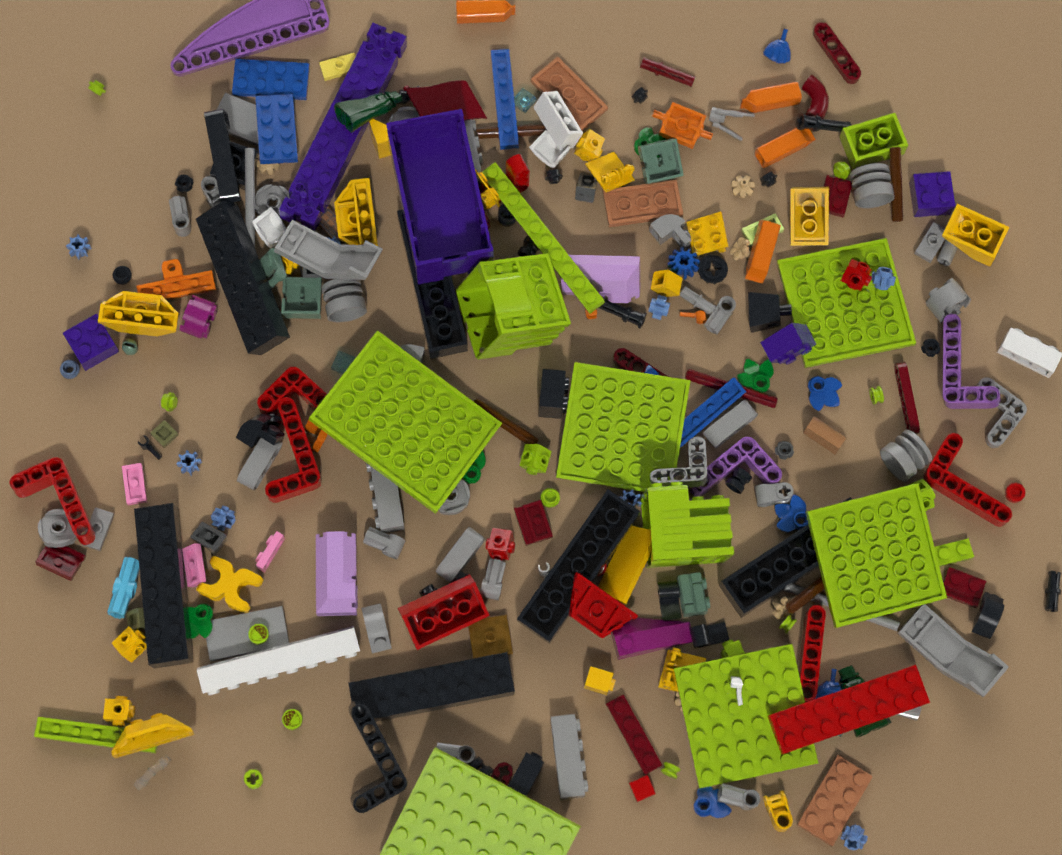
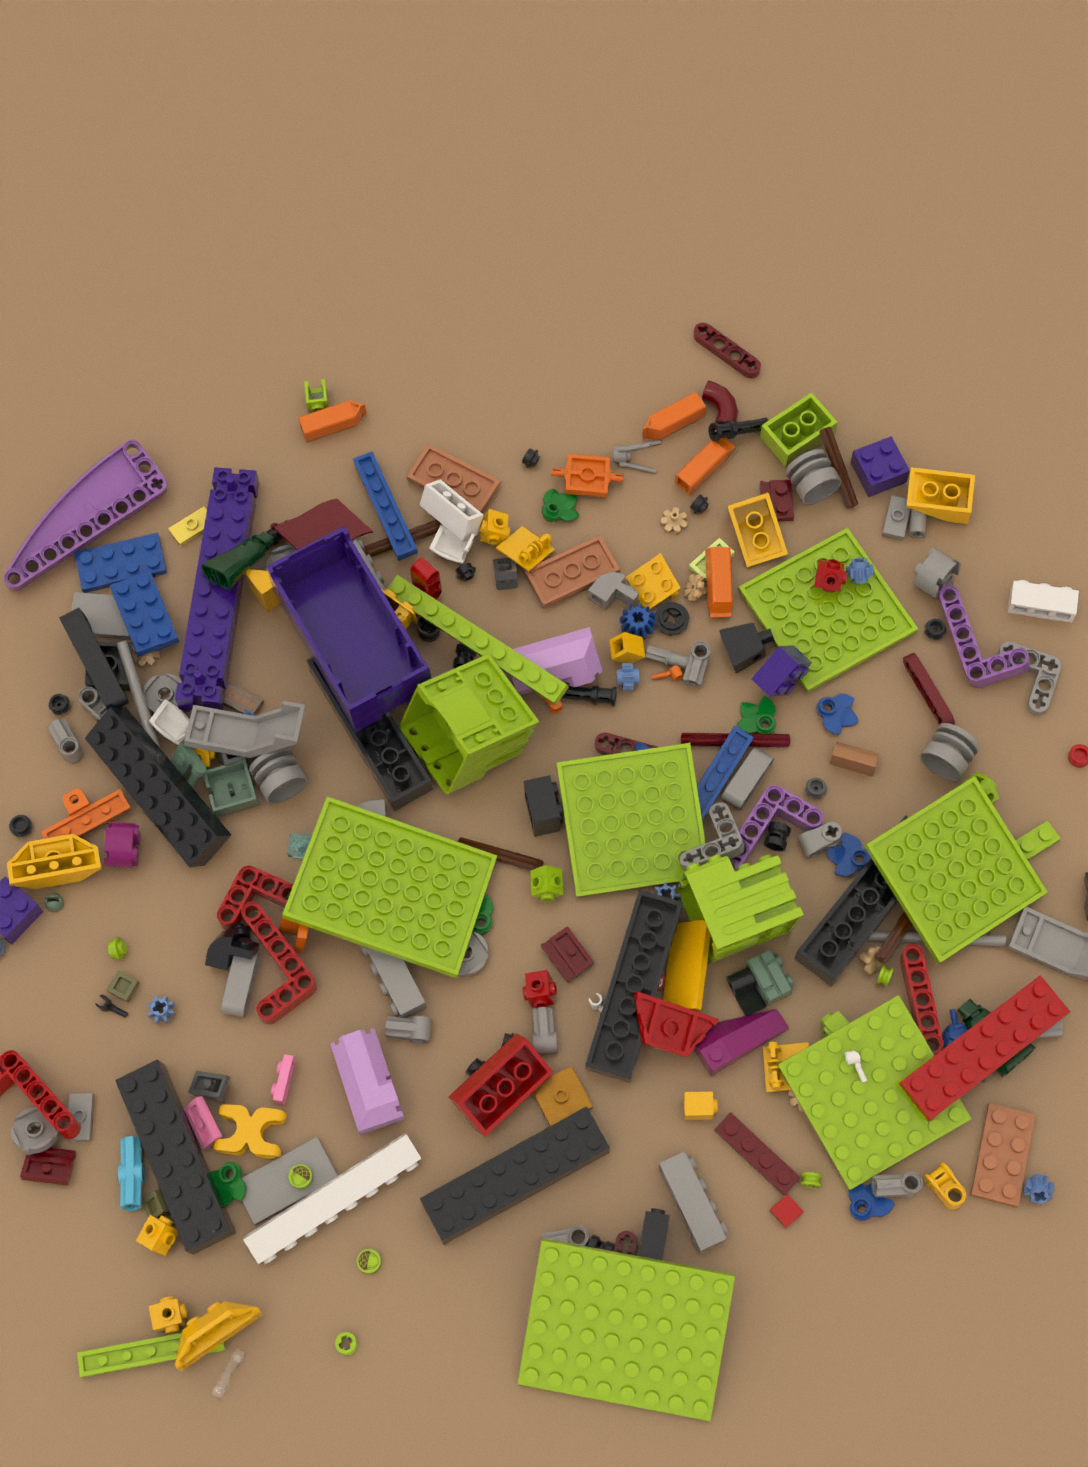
camera: 10 degrees left, 5 degrees down
(134, 484) = (106, 1053): bright pink plate -> none
(223, 518) = (219, 1059): medium blue gear -> none
(356, 213) = (261, 677): yellow wedge -> none
(376, 628) = (431, 1127): light grey brick -> none
(379, 756) = (482, 1271): black beam -> none
(460, 555) = (498, 1015): light grey beam -> none
(524, 100) = (407, 500): clear light blue plate -> none
(550, 497) = (577, 921): lime plate -> none
(669, 160) = (585, 516): sand green piece -> none
(686, 78) = (527, 423): dark red pin -> none
(708, 635) = (802, 1016): black panel -> none
(778, 50) = (664, 365): blue piece -> none
(841, 170) = (774, 470): lime plate -> none
(876, 395) = (894, 697): lime bush -> none
(961, 486) = (1020, 766): red beam -> none
(963, 587) = (1061, 875): dark red plate -> none

